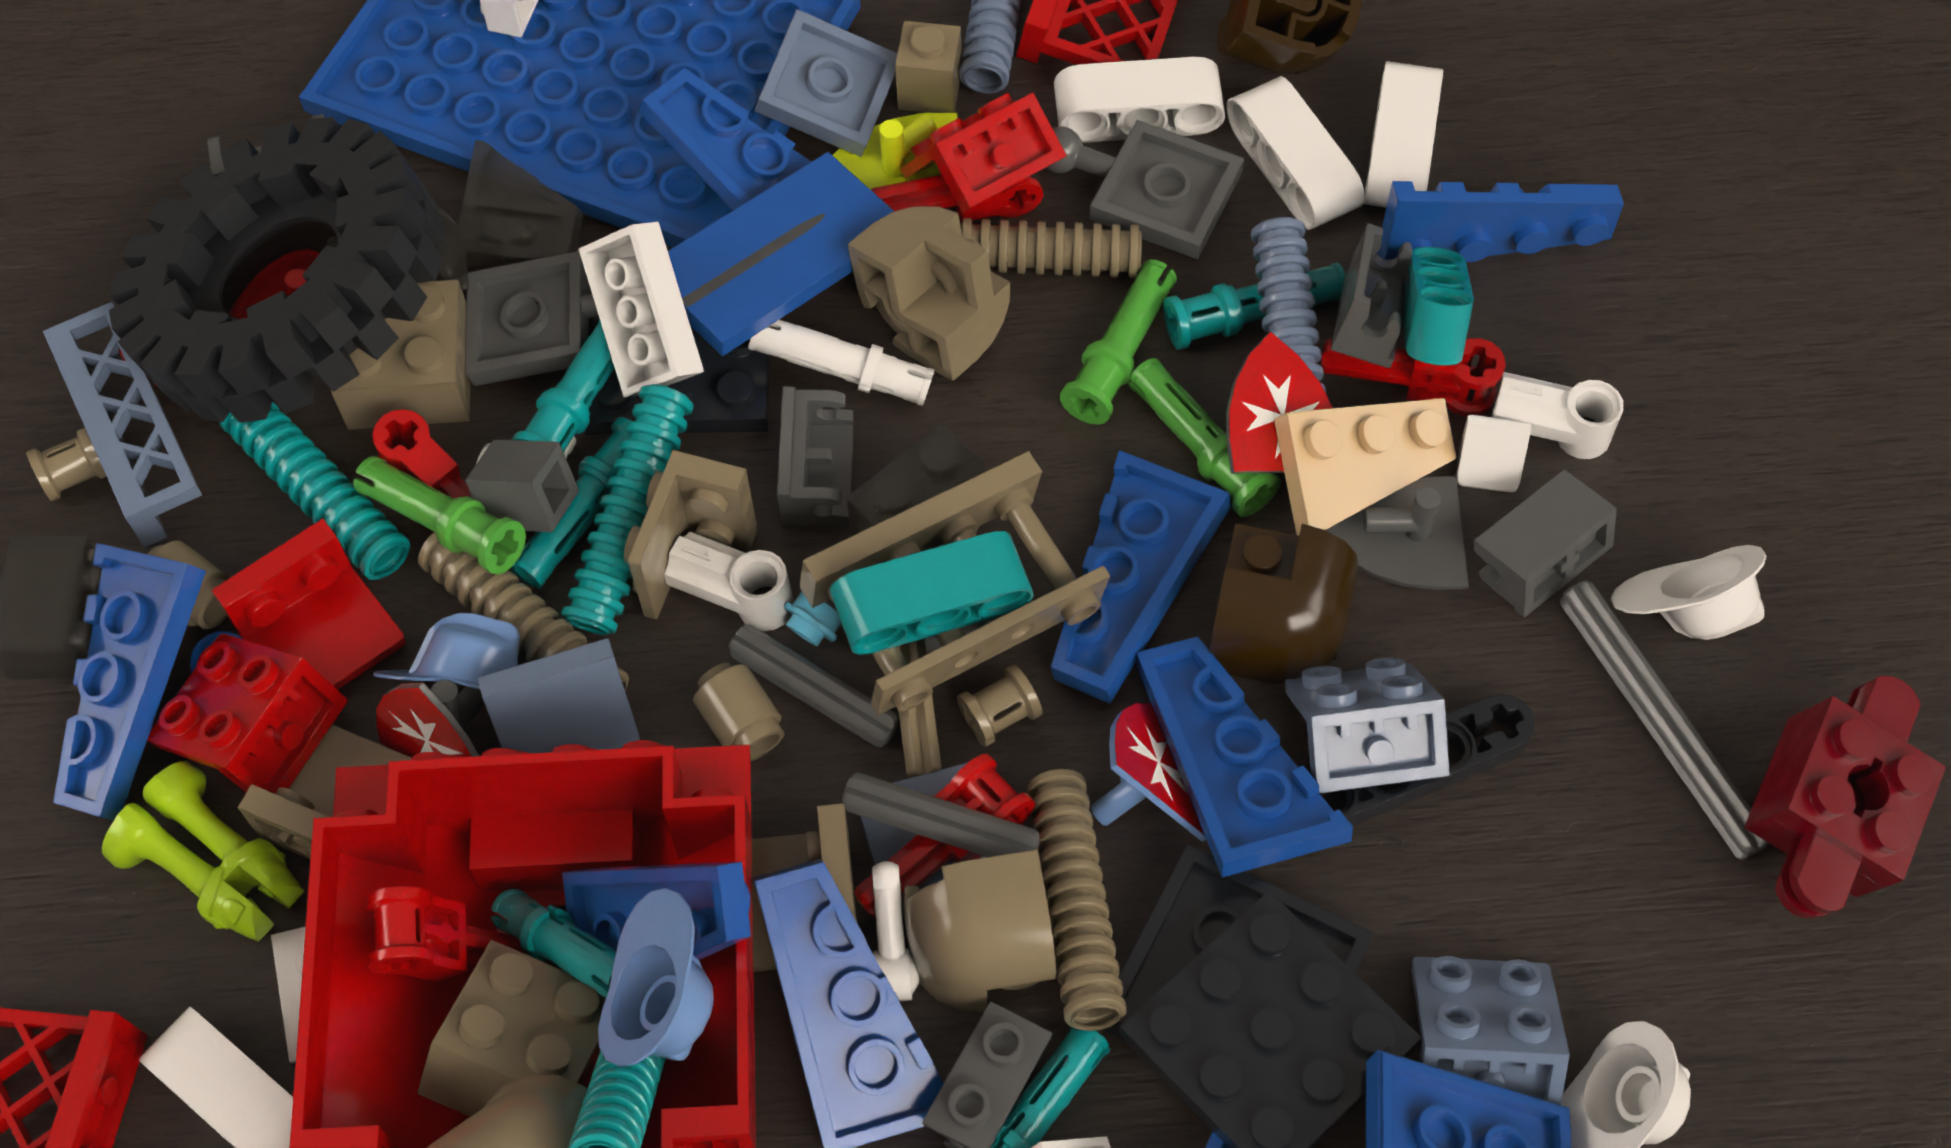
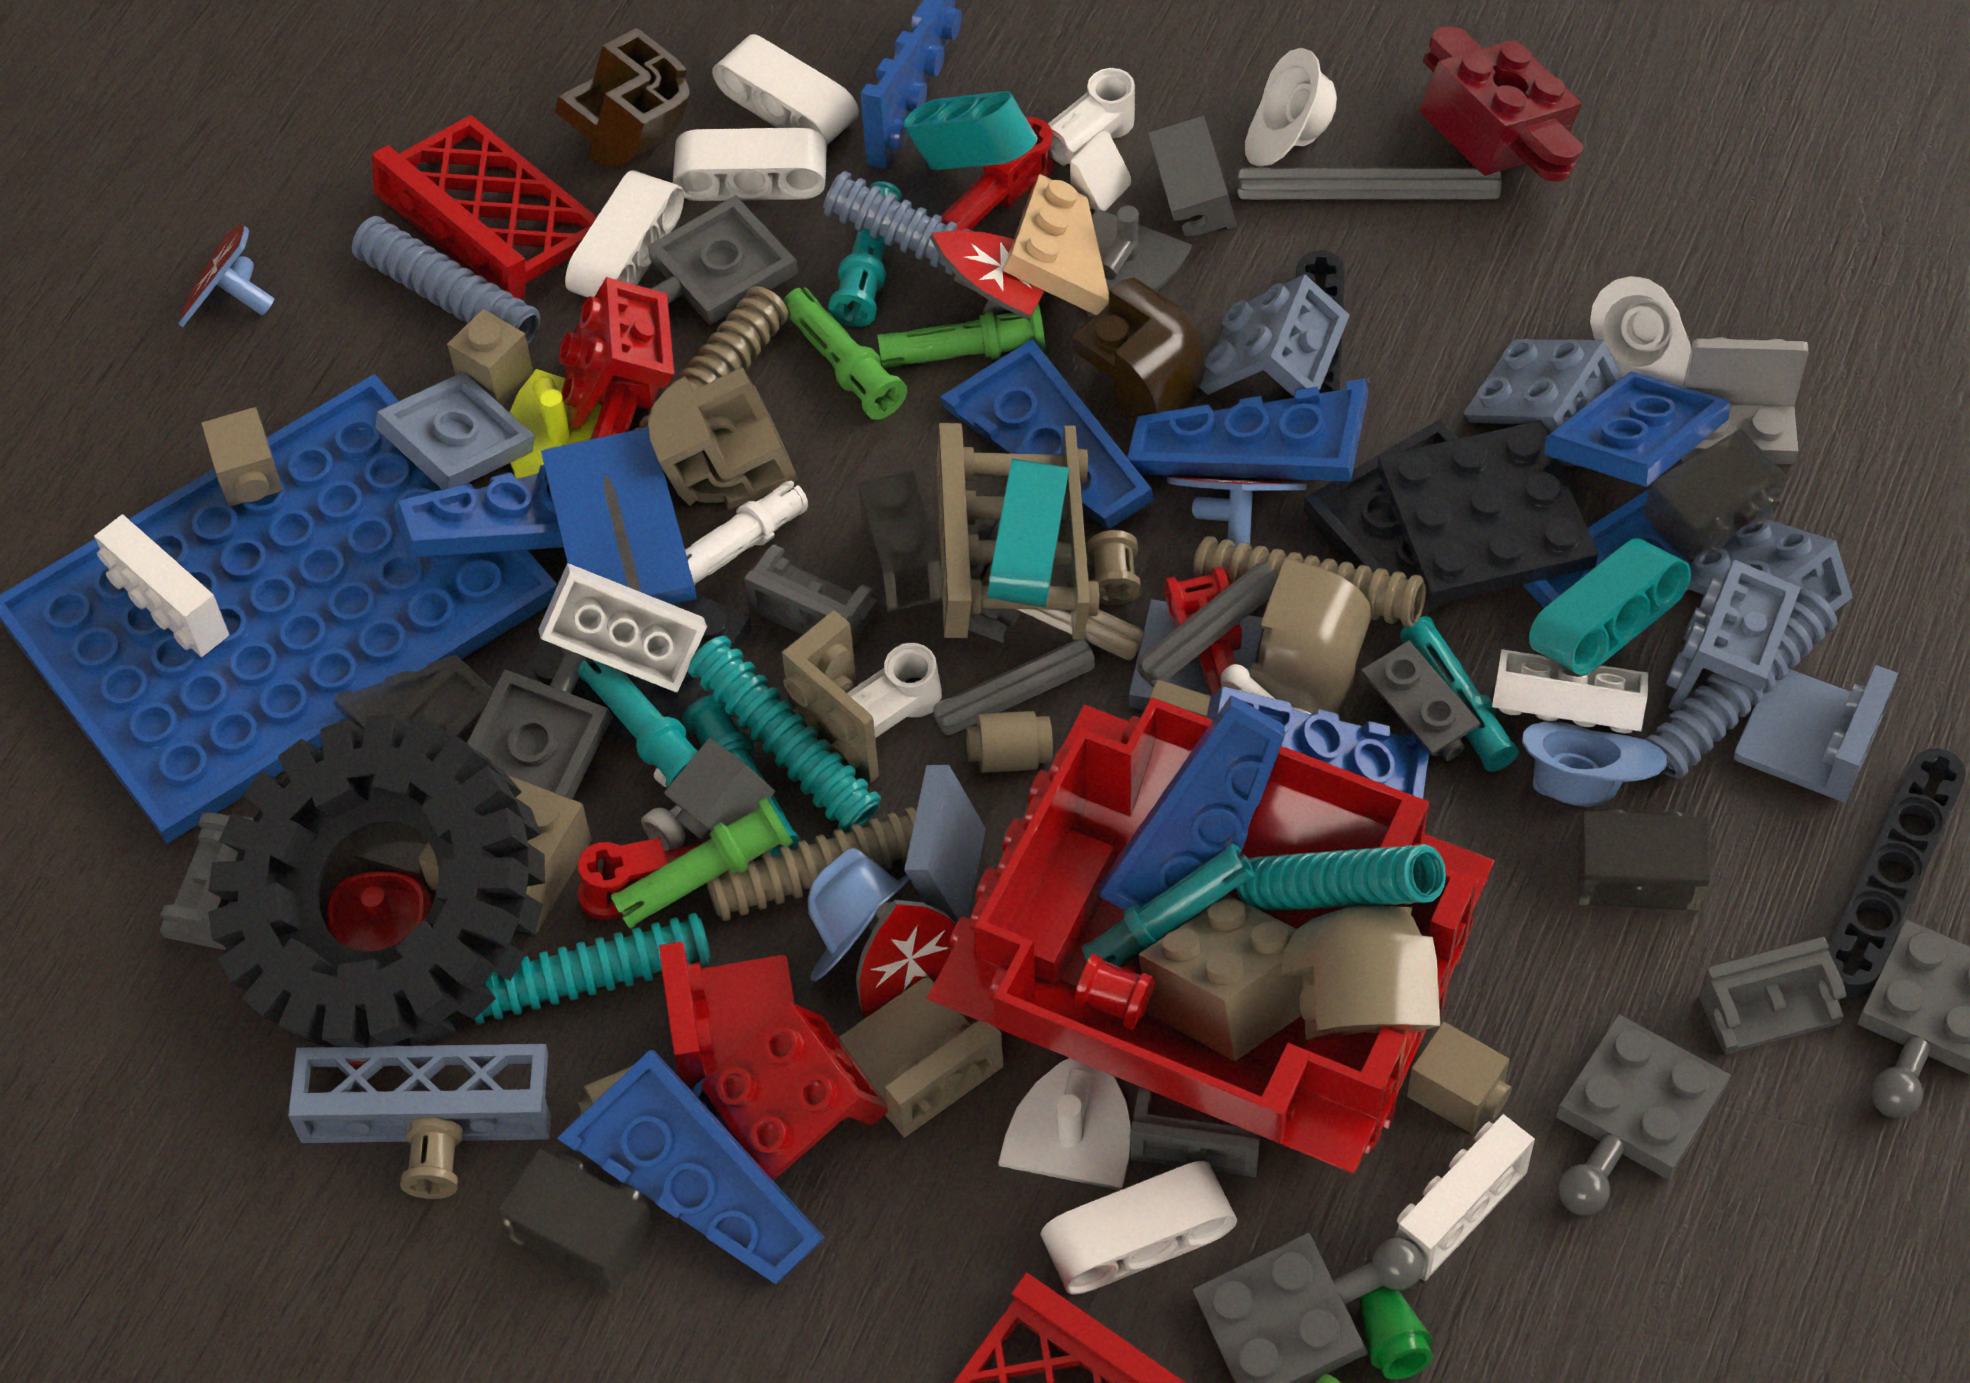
camera: 60 degrees left, 5 degrees down
(221, 890) = (951, 1163): lime piece -> none
(657, 985) = (1277, 807): medium blue piece -> none
(812, 623) = (958, 659): medium azure plate -> none
(1371, 301) = (930, 172): dark grey hinge -> none

